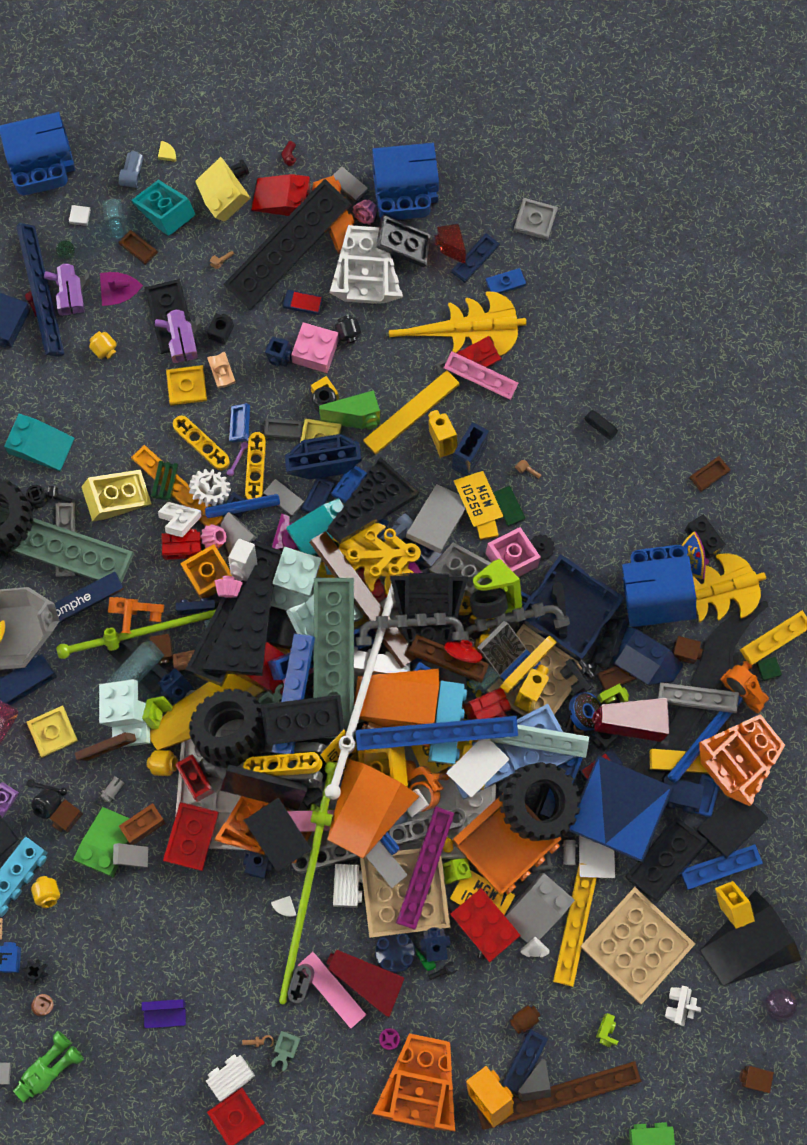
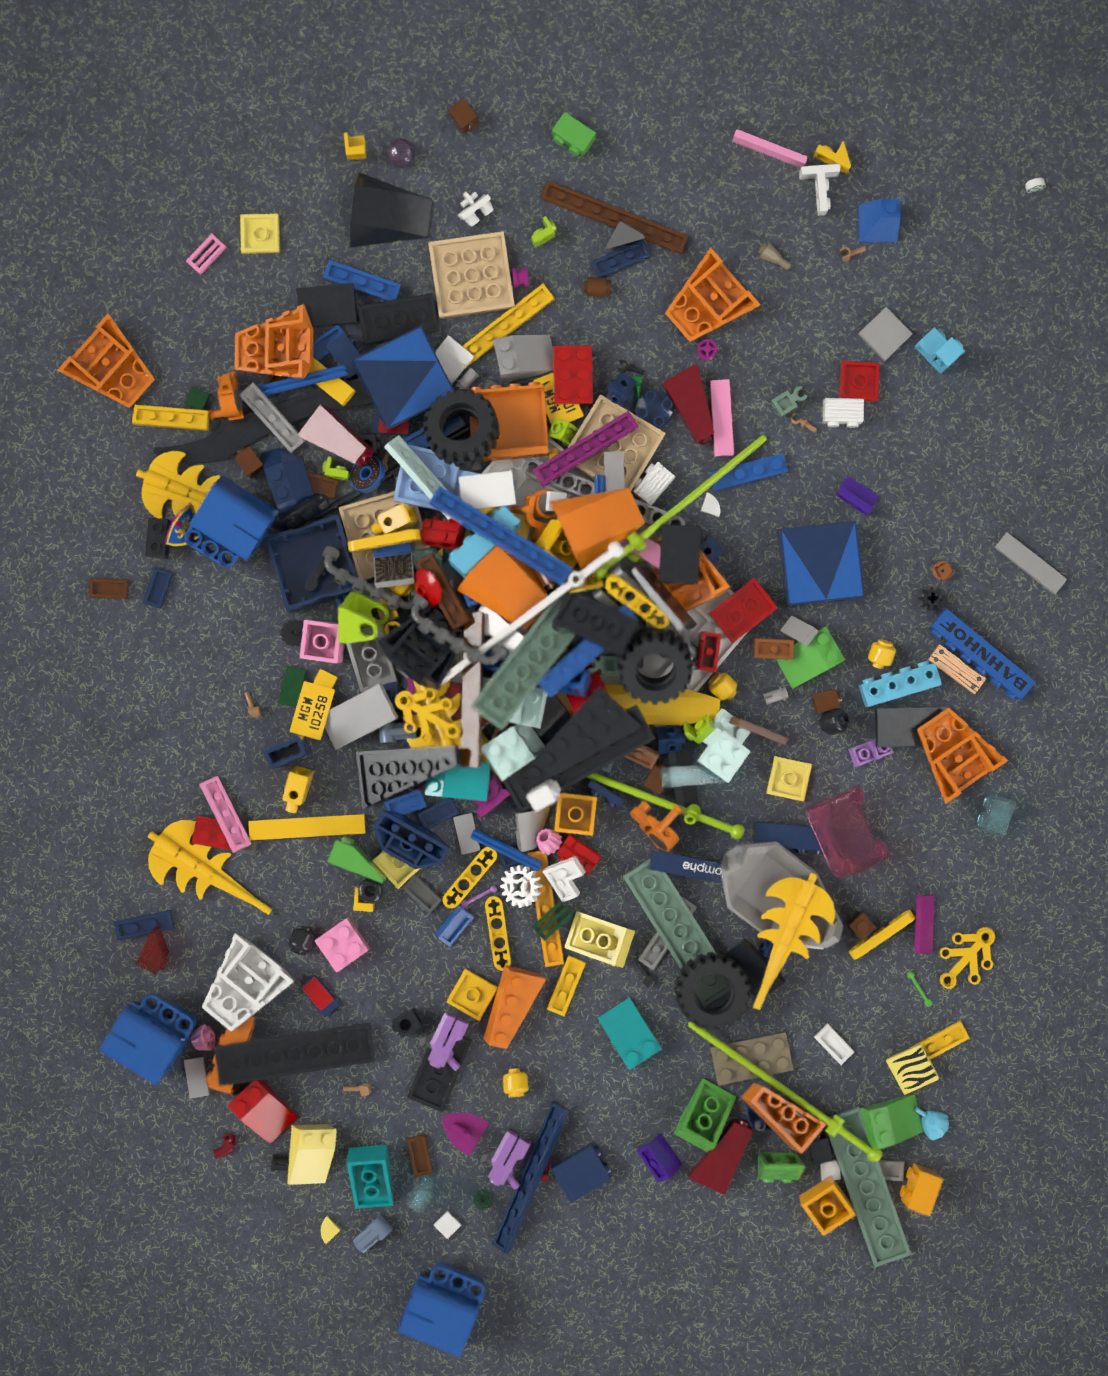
camera: 140 degrees left, 15 degrees up
(31, 783) = (833, 749): black hinge -> none
(39, 499) = (664, 983): black wheel -> none
(39, 1075) = (980, 520): bright green piece -> none
(117, 443) = (566, 985): none -> yellow tile
(149, 398) = (512, 1002): none -> orange wedge
(152, 927) = (821, 563): none -> tile
(221, 370) = (434, 983): light nougat hips -> none
(228, 587) = (571, 781): bright pink piece -> none
(271, 963) = (751, 472): none -> blue plate
(279, 352) = (375, 969): dark blue brick -> none
(305, 984) = (742, 441): black beam -> none
(403, 241) = (194, 983): black tile -> none
(489, 610) = (382, 604): black tyre -> none
(490, 1096) = (666, 250): light orange brick -> none
(506, 281) = (136, 883): blue plate -> none
(535, 218) = (64, 921): light grey tile -> none
(535, 948) = (548, 331): white tile -> none
(572, 668) = (348, 501): black hips -> none
(595, 976) = (520, 277): none -> magenta wheel
(601, 424) = (162, 696): black beam -> none
(673, 502) = (158, 588): none -> dark blue tile
(734, 904) = (376, 244): yellow brick -> none

